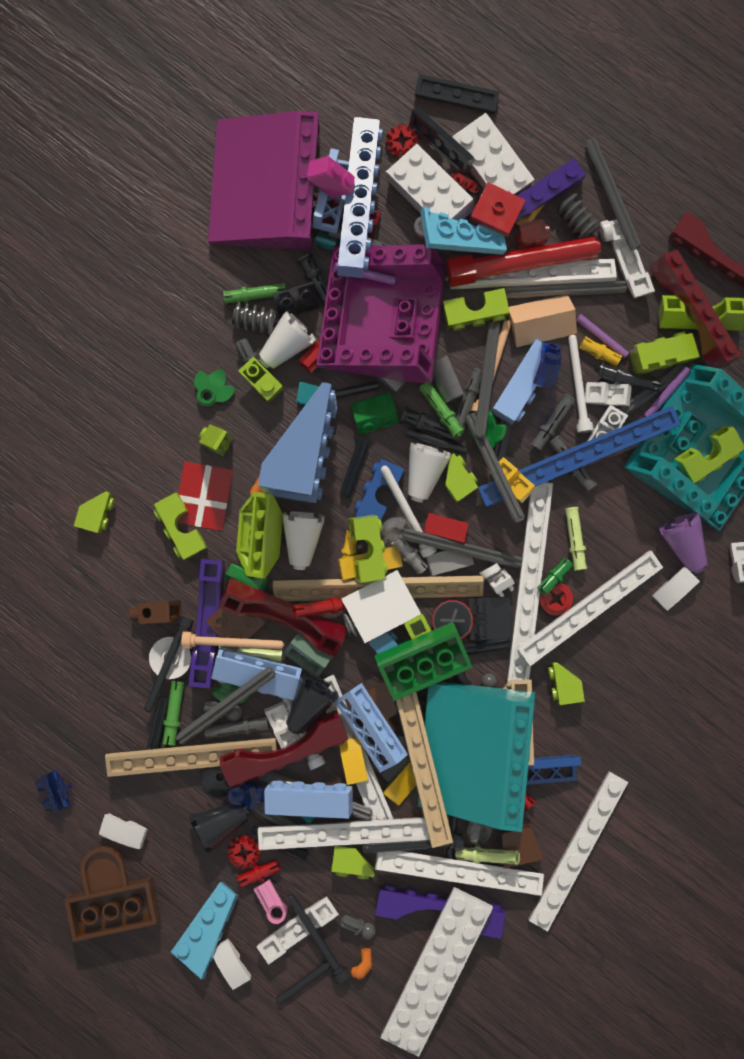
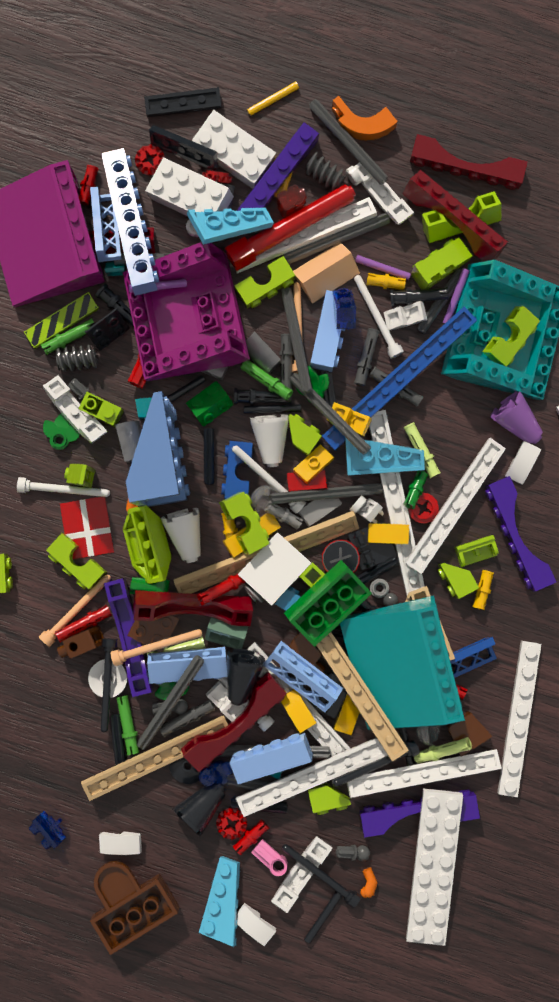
camera: 20 degrees left, 0 degrees up
(125, 593) = (49, 636): none -> light nougat piece
(155, 430) = (26, 485): none -> white piece
(169, 592) = (83, 623): none -> red pin
(229, 367) = (68, 406): none -> white slope
(252, 274) = (61, 320): none -> tile
(280, 418) = (128, 437): none -> flat silver brick
(285, 341) = (110, 368): white cone -> none
(330, 177) = (98, 212): dark pink brick -> none
(331, 141) = (87, 183): none -> red pin
(459, 513) = (313, 464): none -> yellow plate
(488, 664) = (373, 588): none -> light grey plate
(497, 209) = (253, 189): red plate -> none
(510, 612) = (388, 533): none -> yellow slope
(532, 533) = (383, 458): none -> medium azure wing
(551, 122) = (273, 98): none -> yellow bar
(589, 705) = (484, 590): none -> yellow pin
(595, 662) = (476, 550): none -> lime hinge
(610, 421) = (416, 337): white slope -> none
(634, 185) = (361, 127): none -> orange arch
(649, 706) = (536, 572): none -> dark purple arch

